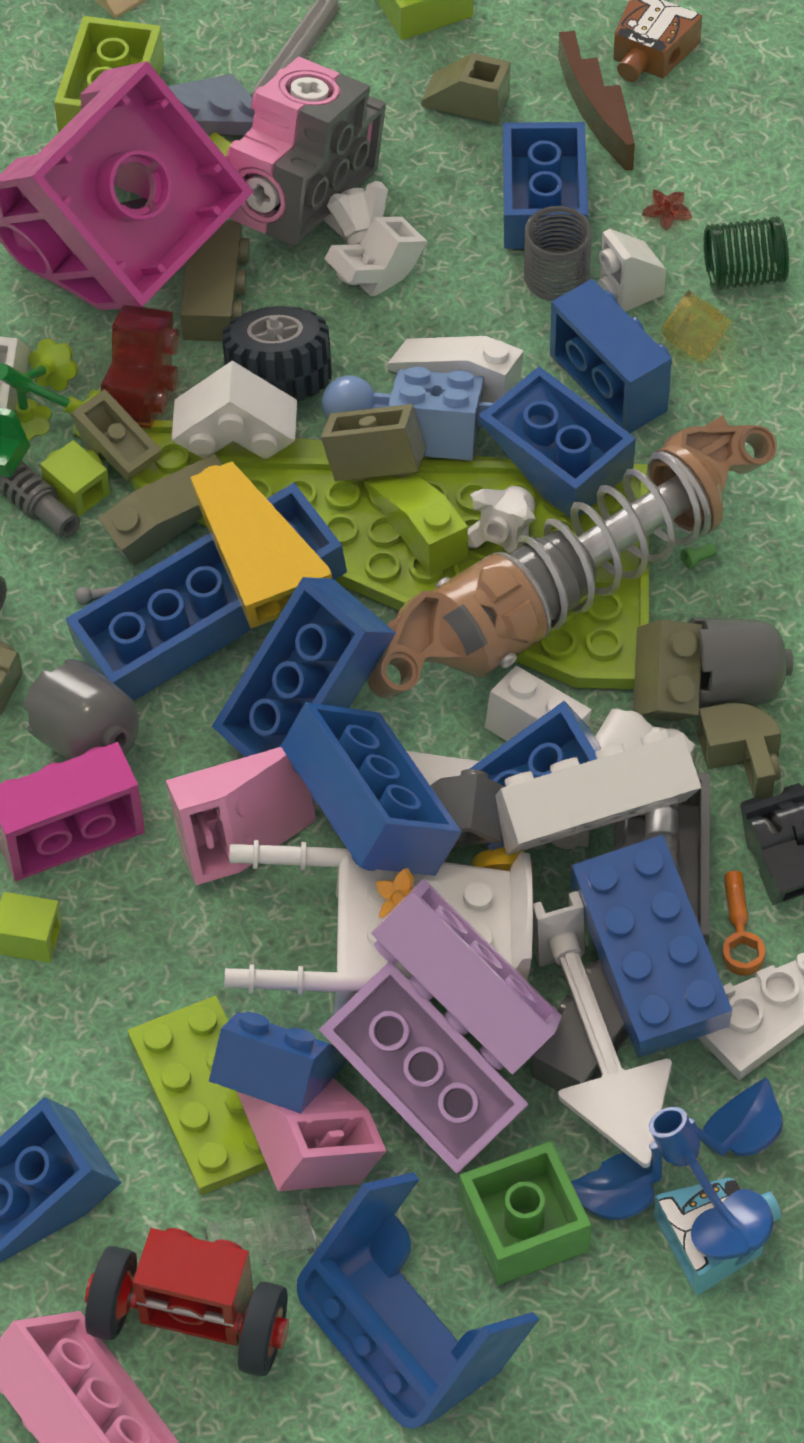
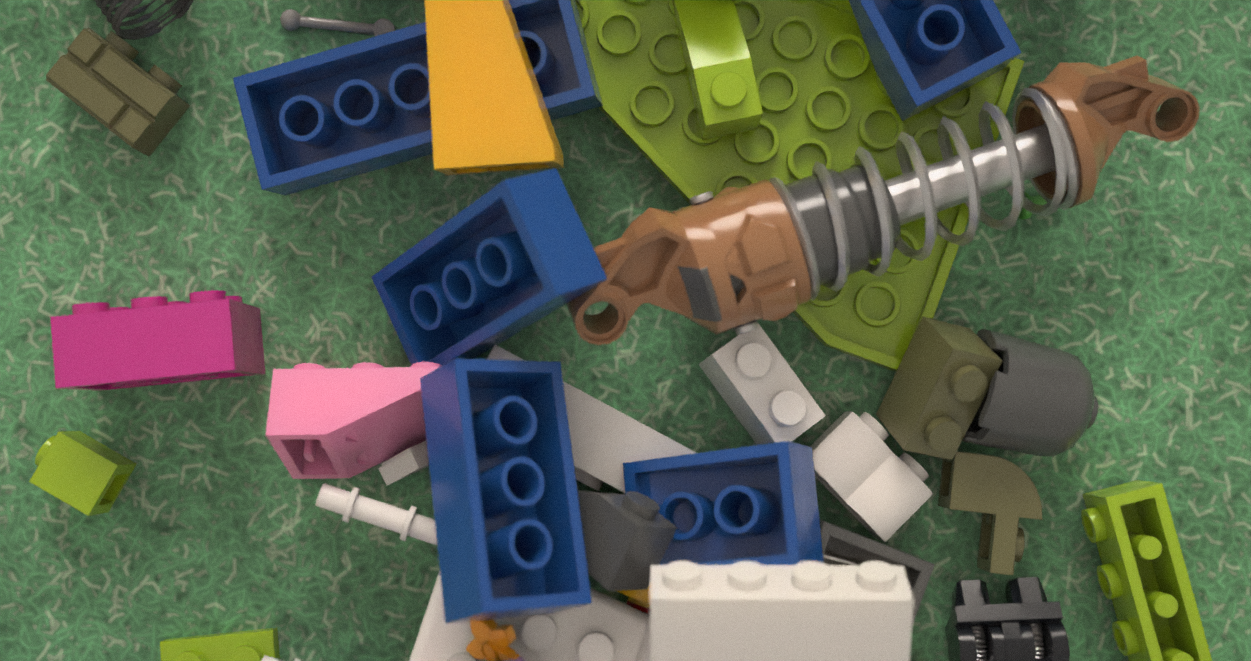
camera: 20 degrees right, 30 degrees up
(80, 711) = (216, 221): dark grey cylinder -> none
(292, 837) = (405, 463): none -> white tile
(503, 517) = (815, 100): white rock -> none

